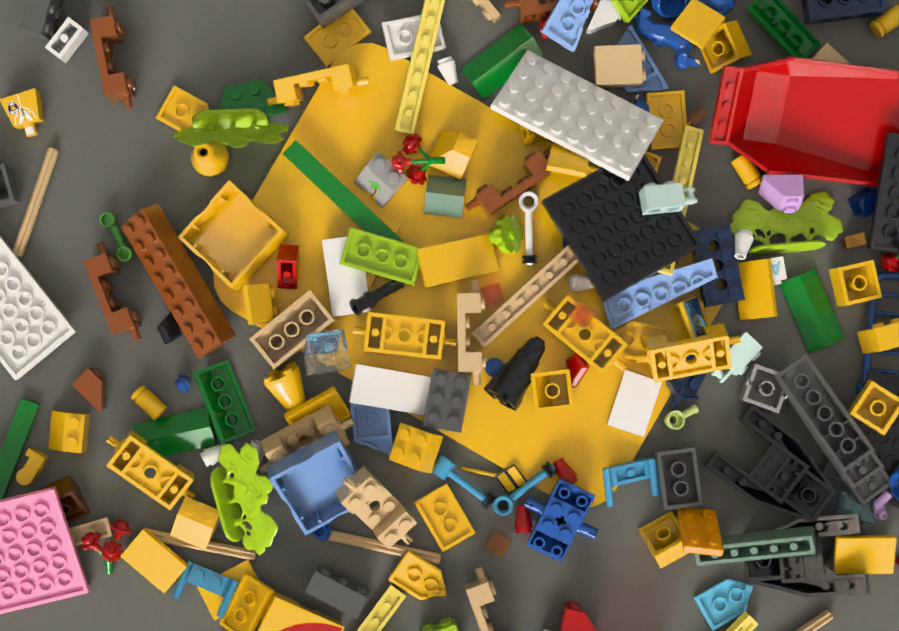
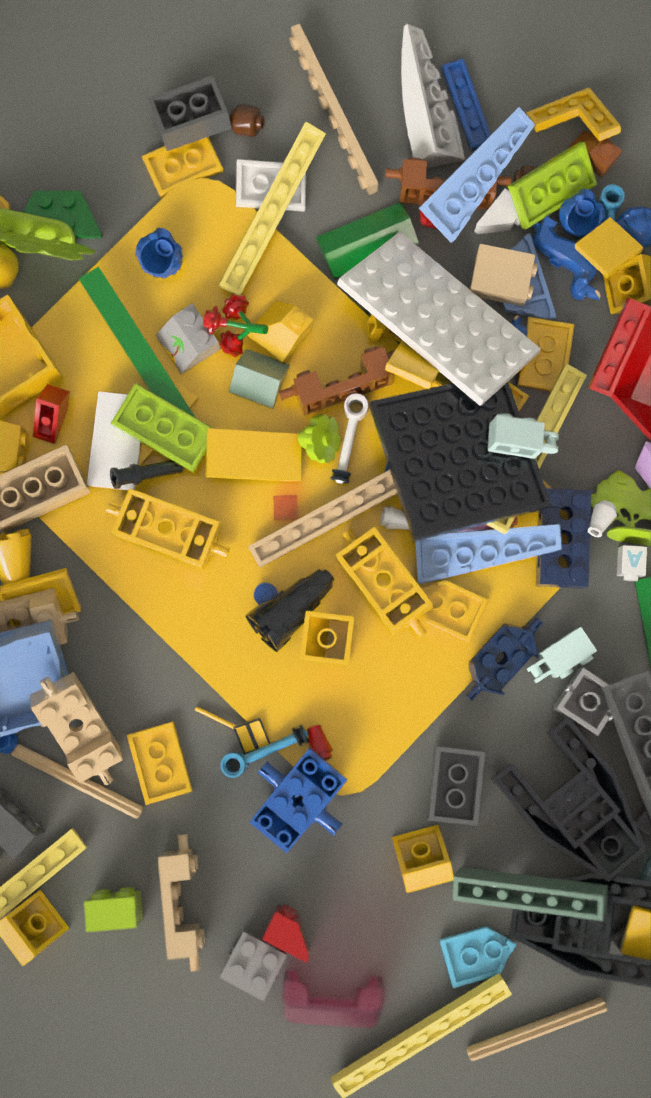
camera: 10 degrees right, 5 degrees down
(290, 90) = (109, 206): yellow brick -> none
(326, 352) = (66, 525): clear slope -> none
(341, 116) = (159, 253): none -> blue hair
(372, 427) = (103, 622): medium blue wing -> none
(389, 389) = (132, 589): white tile -> none
(415, 448) = (145, 668): yellow brick -> none
(418, 577) = (107, 828): yellow tile -> none
(444, 467) = (173, 701): dark azure piece -> none
(447, 400) = (197, 619): dark grey brick -> none
(448, 70) = (301, 233): white cone -> none
(469, 304) = (254, 510): tan brick -> none
(498, 544) = (215, 812): clear orange plate -> none
(522, 521) = (253, 791): red cone -> none
(577, 368) = (365, 621): red piece -> none
(582, 315) = (385, 554): clear orange plate -> none
(630, 472) = (397, 763): dark azure plate -> none
(634, 403) = (424, 680): white tile -> none
(669, 359) = (478, 634): yellow brick -> none
(679, 417) = (475, 711): yellowish green bar -> none
(691, 317) = (518, 593): slope -> none
(696, 116) = (582, 358): clear orange plate -> none
(699, 531) = (465, 857): light orange plate -> none
(747, 172) = (627, 437): yellow piece -> none
(757, 289) = (606, 580): yellow tile -> none

